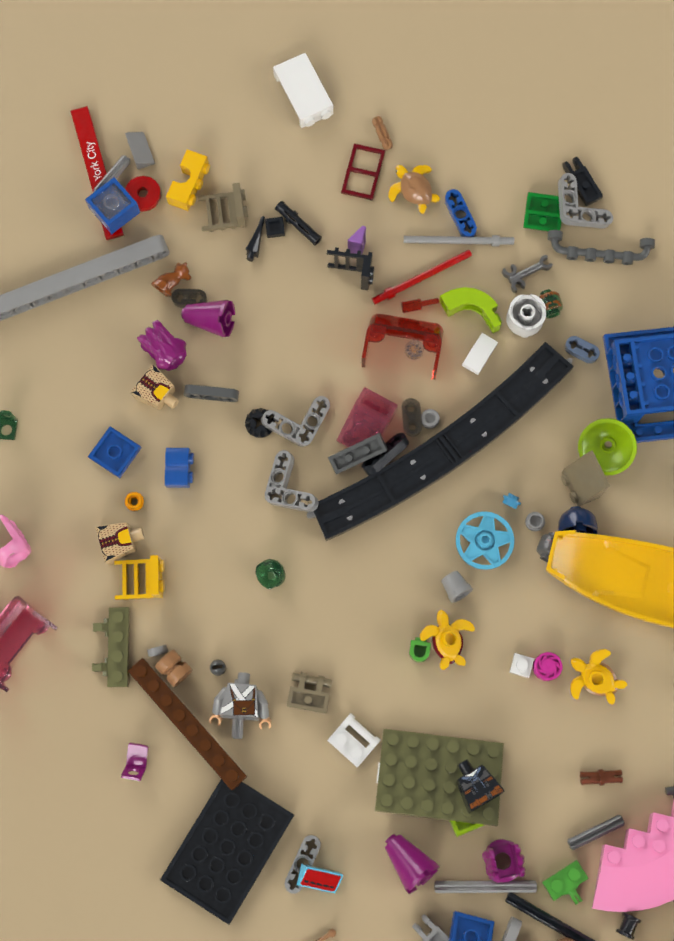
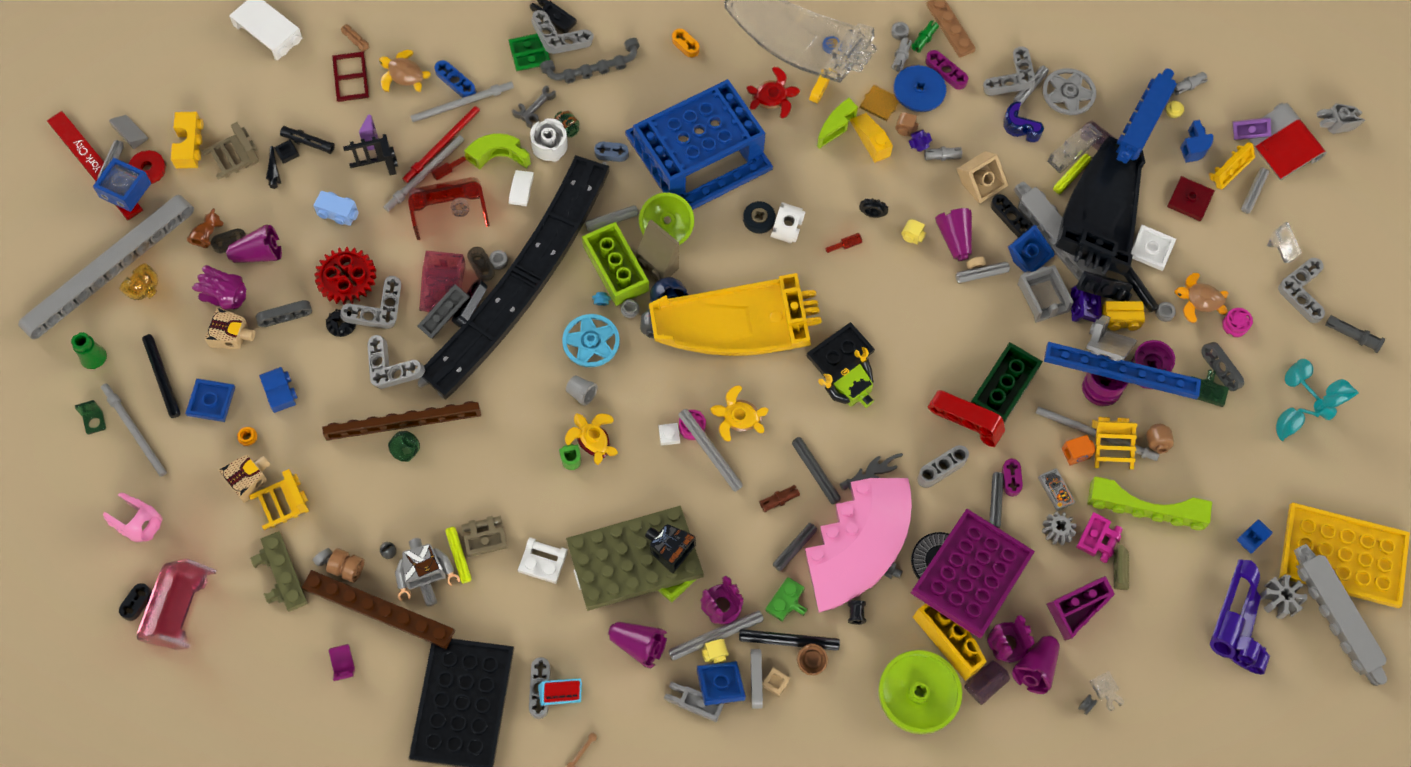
camera: 30 degrees left, 10 degrees down
(26, 361) = (88, 351): none -> green plant
(31, 417) = (115, 401): none -> light grey bar
(80, 409) = (161, 376): none -> black axle
(94, 312) = (141, 283): none -> clear yellow cylinder
(270, 543) = (394, 422): none -> reddish brown plate
(279, 700) = (458, 555): none -> neon yellow axle
(297, 372) = (332, 286): none -> red gear
(301, 309) = (336, 208): none -> light blue brick
(362, 316) = (400, 195): none -> light grey bar
(477, 904) = (715, 651): none -> light yellow plate
(539, 471) = (615, 263): none -> lime brick
(554, 702) = (710, 450): none -> light grey axle
(555, 420) = (607, 219): none -> light grey axle
(648, 764) = (816, 470): none -> dark grey axle

